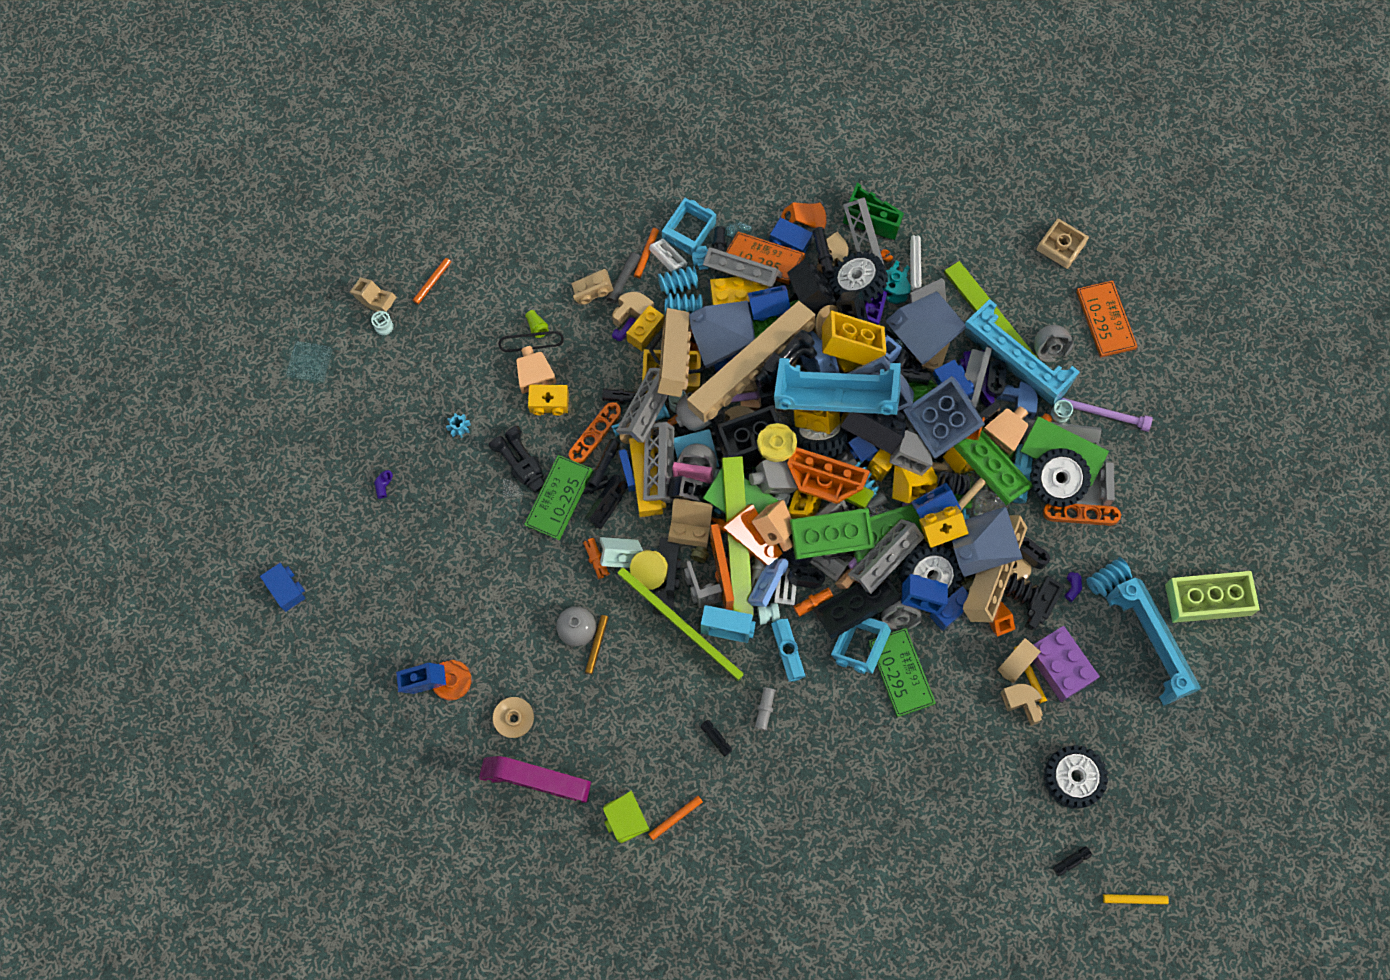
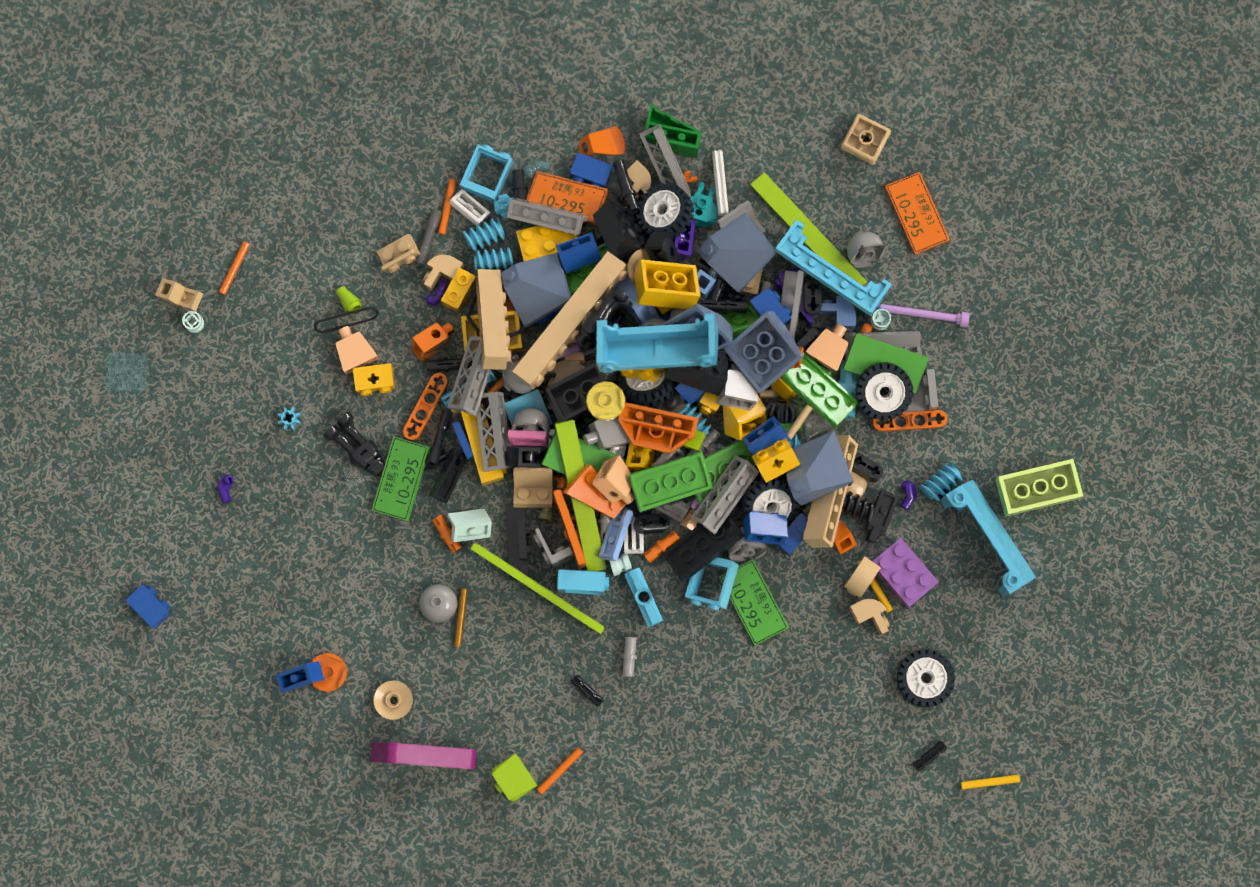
camera: 10 degrees left, 10 degrees up
(610, 370) = (431, 340): none -> orange torso
(649, 568) = (500, 539): light yellow tile -> none

